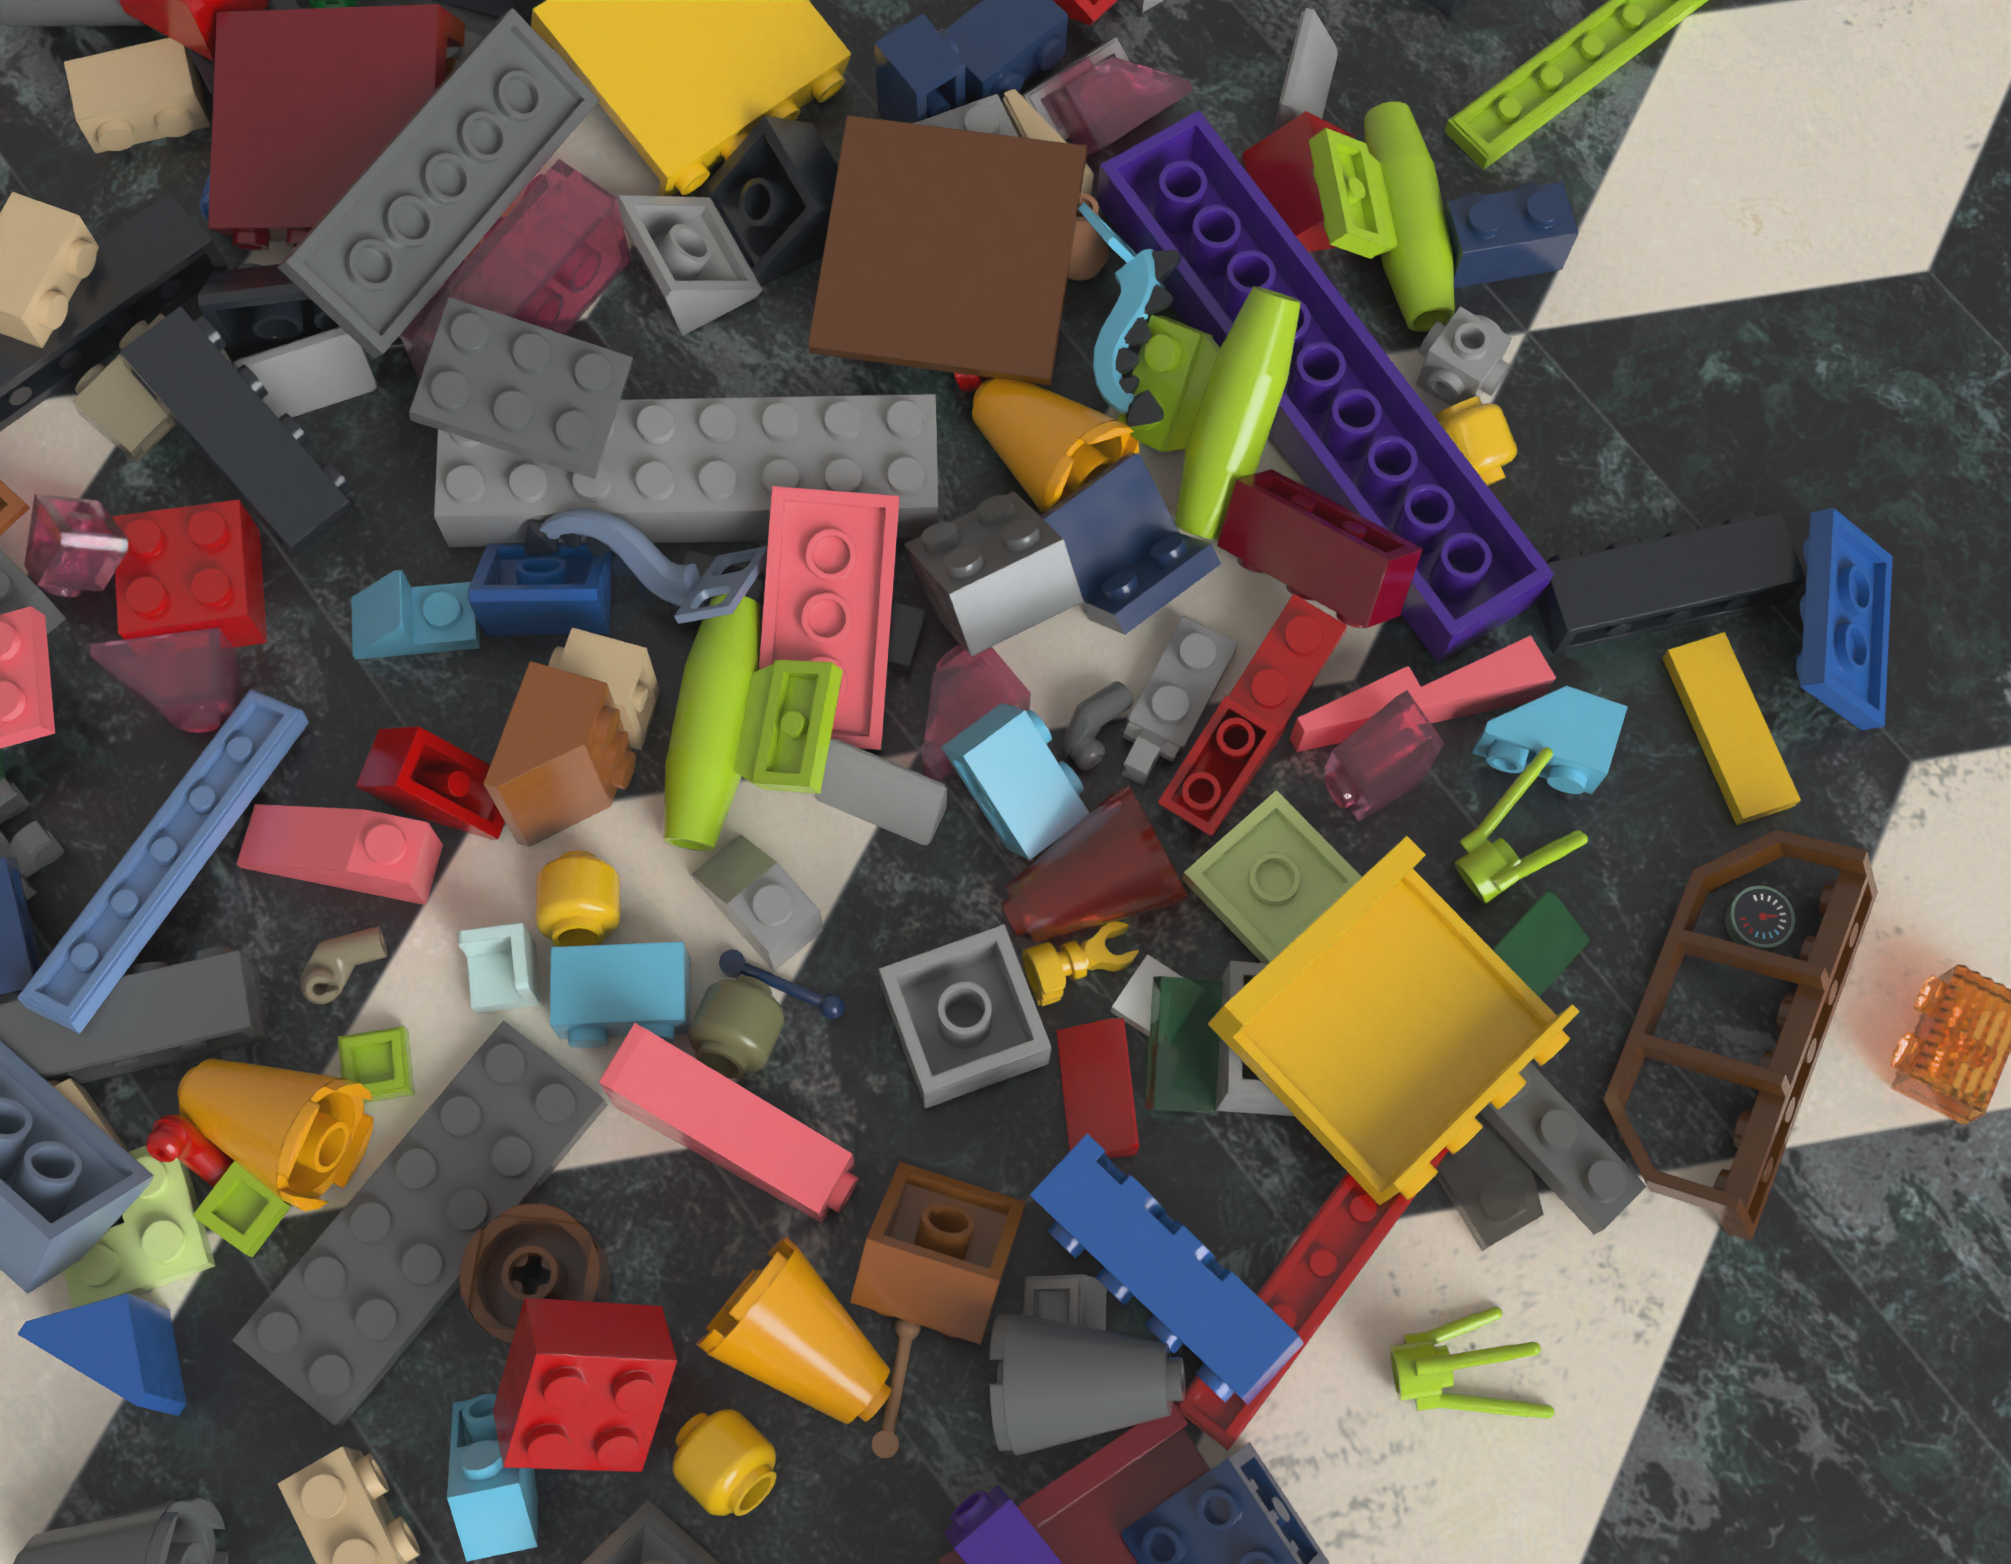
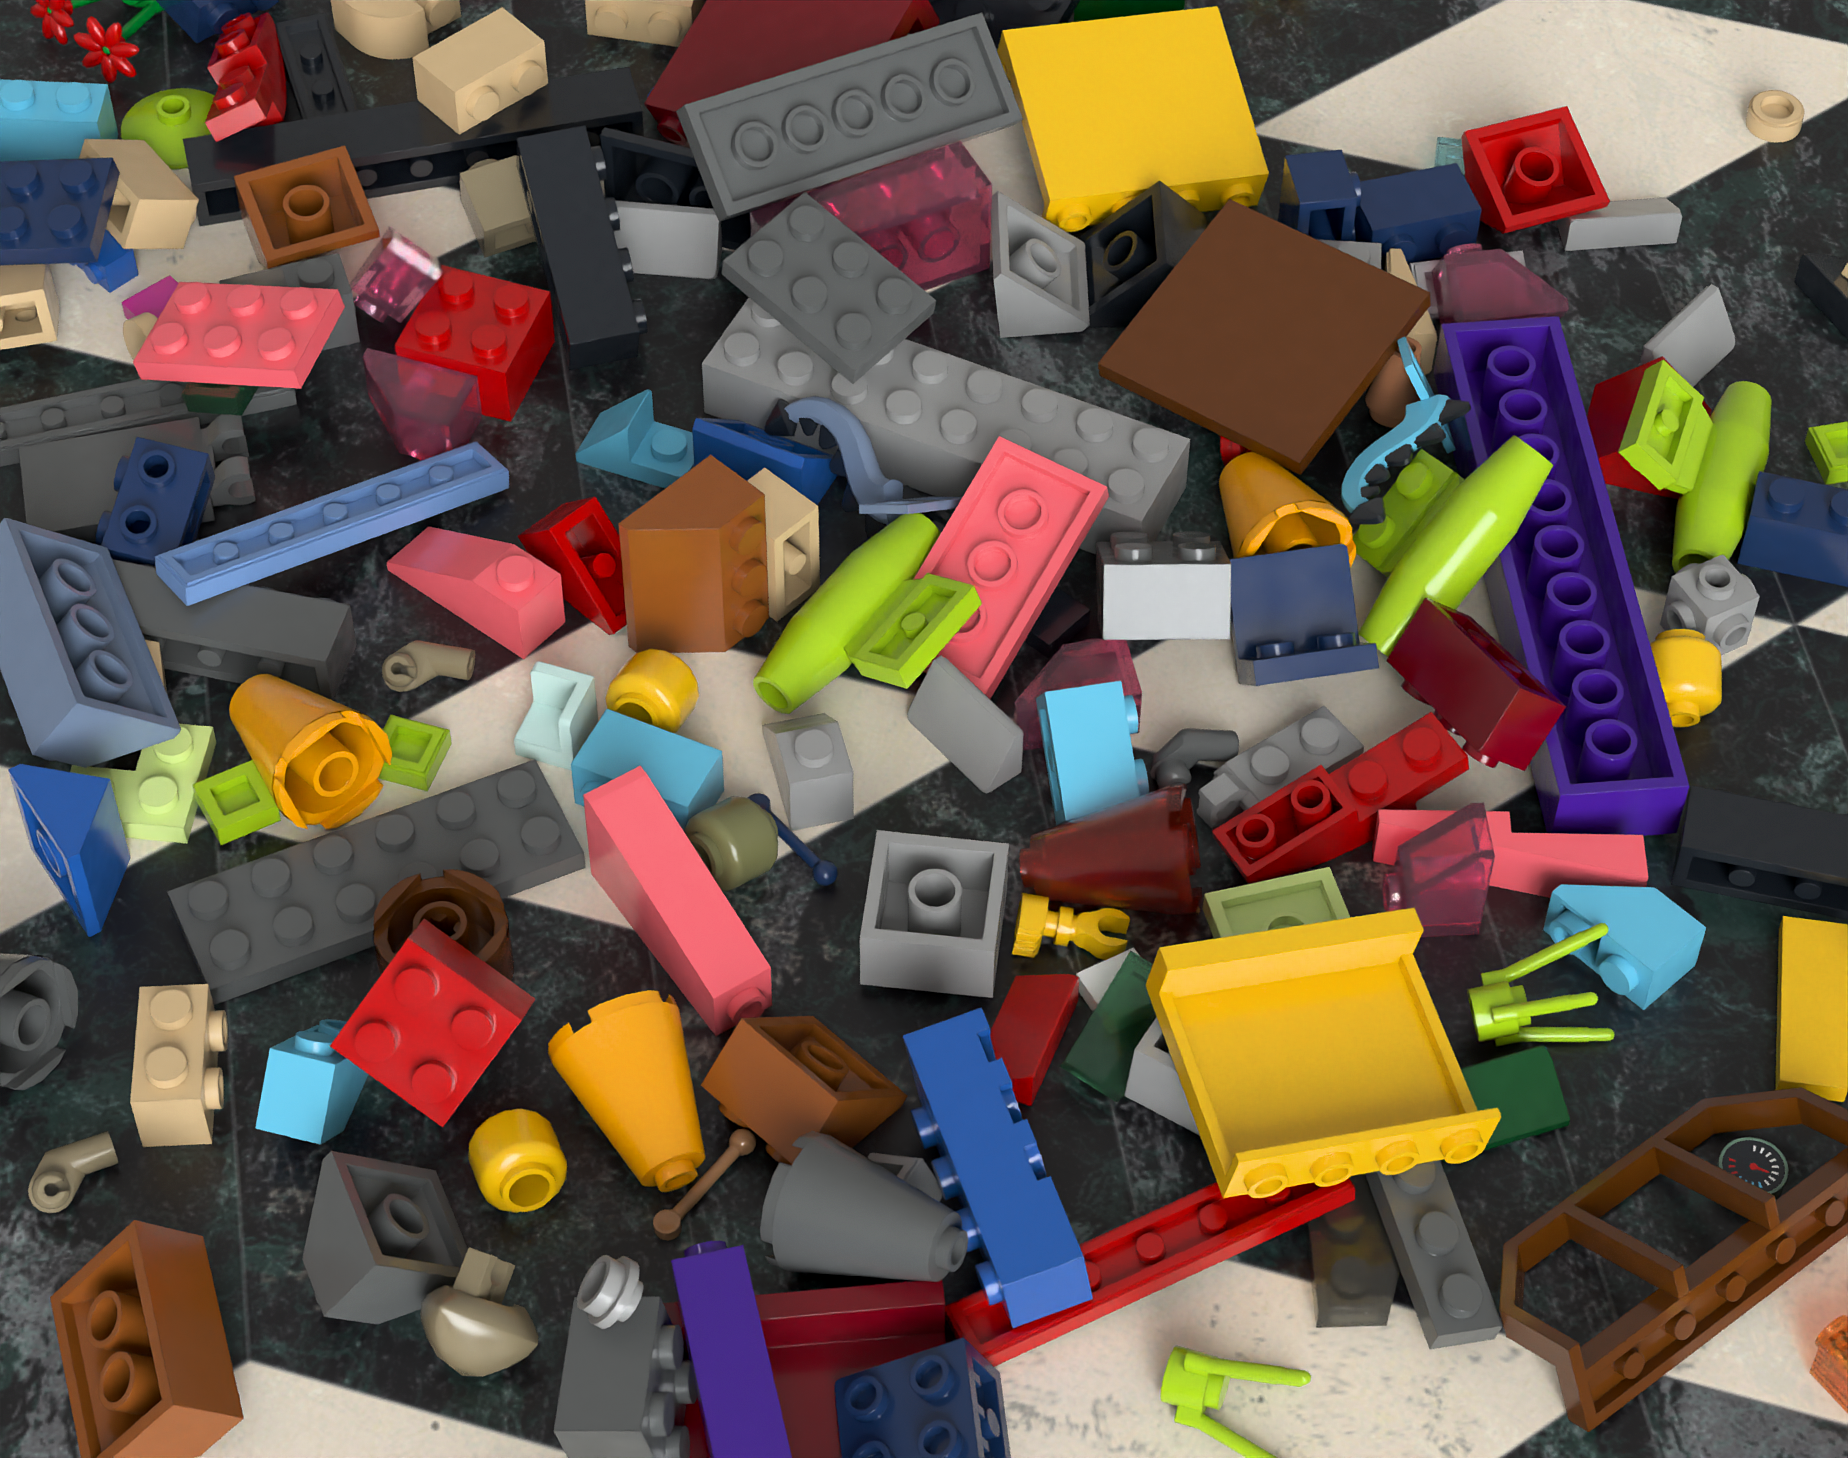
camera: 30 degrees right, 20 degrees down
(178, 1138) = (217, 719): red arm -> none

